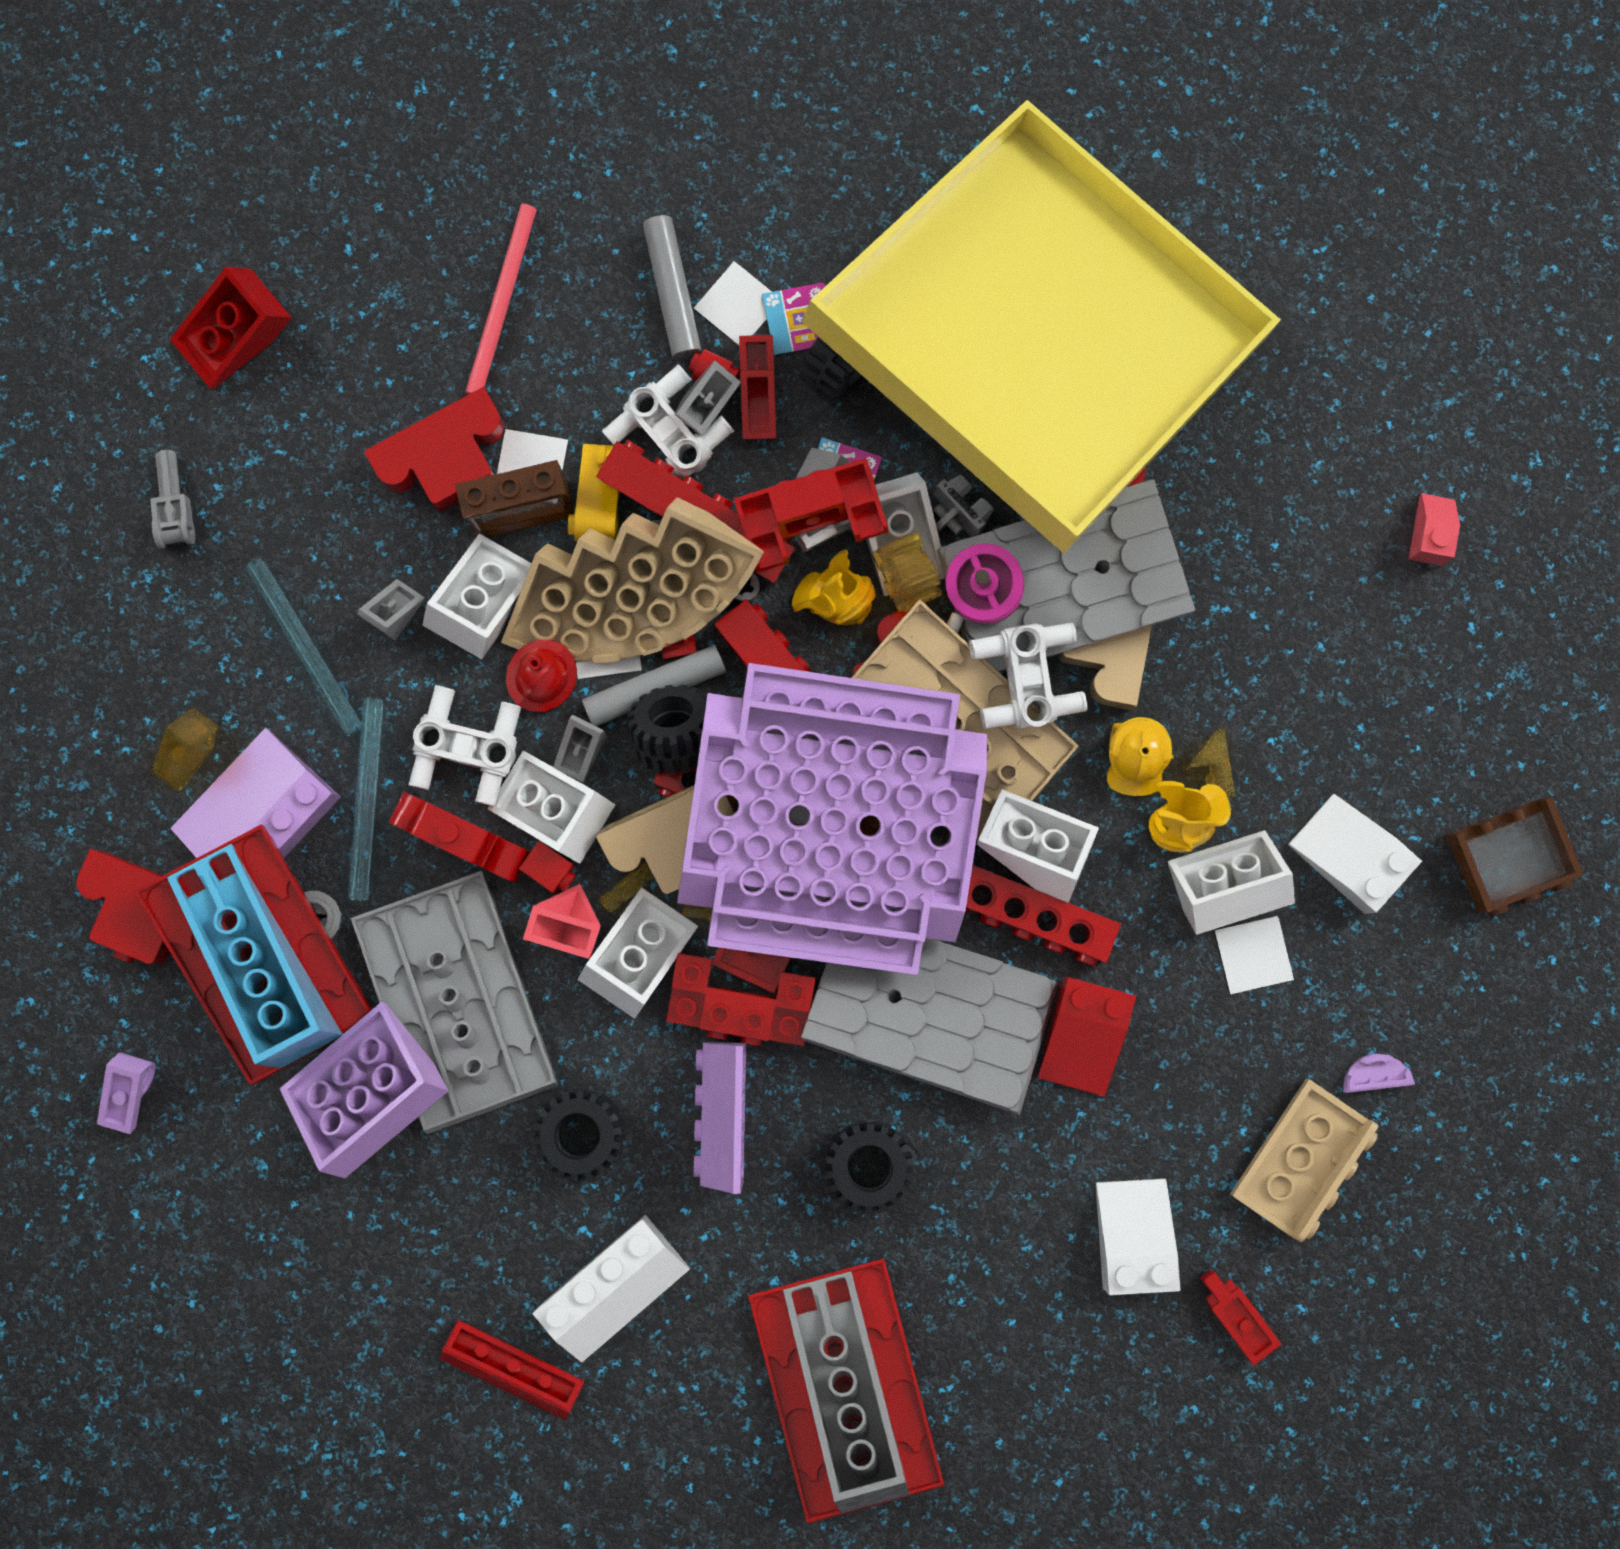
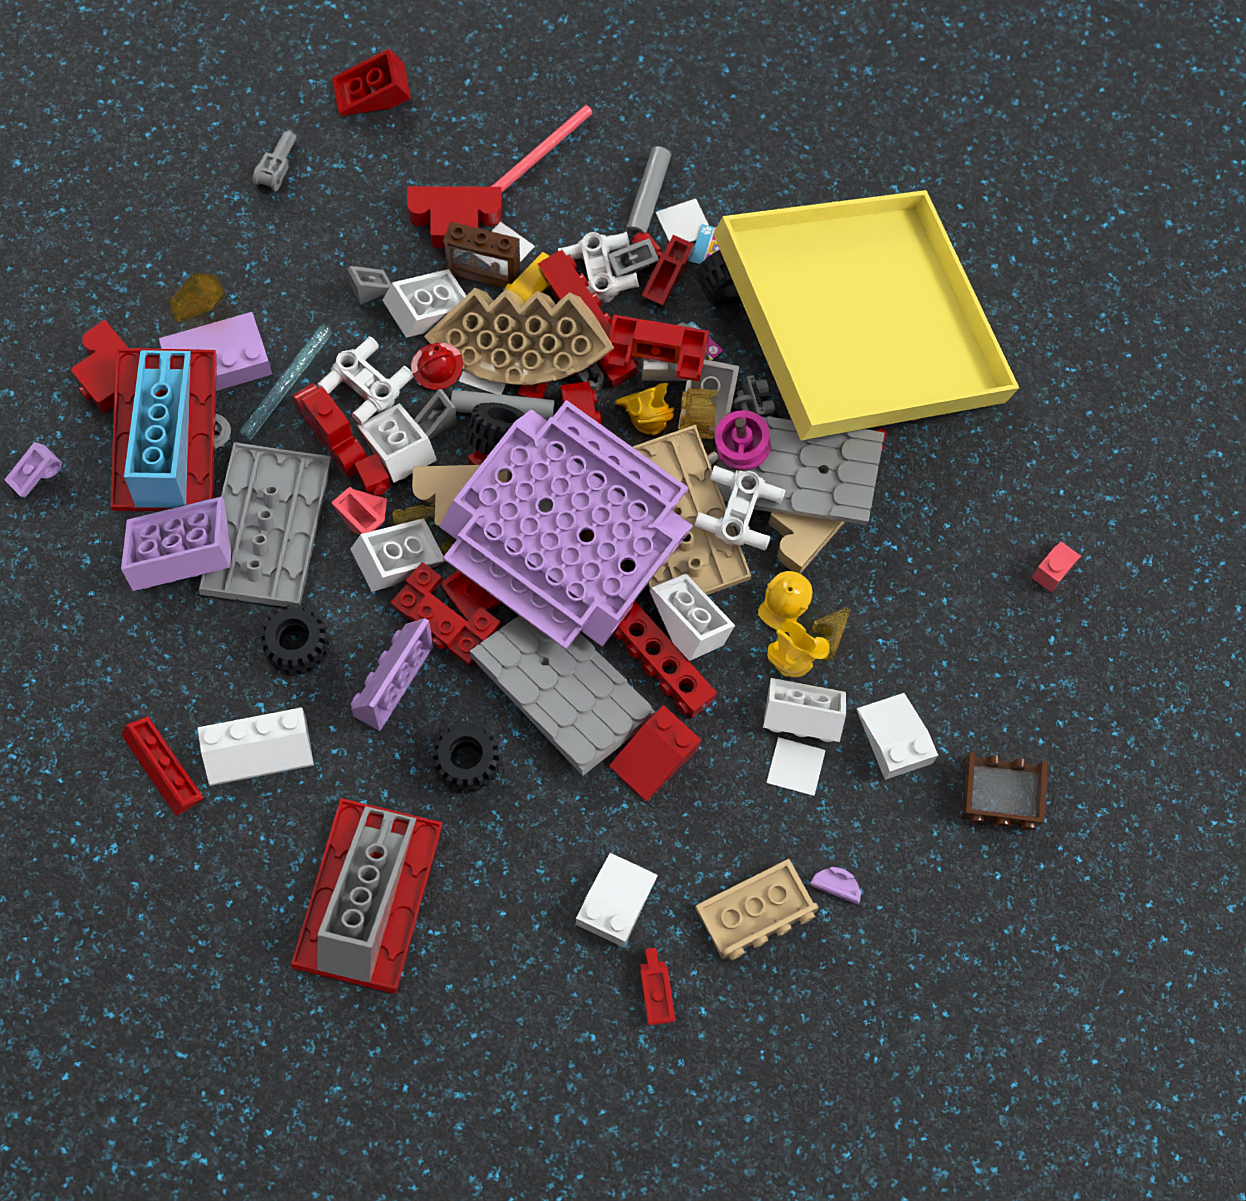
camera: 25 degrees right, 15 degrees down
(304, 646) = (303, 278): clear light blue axle -> none

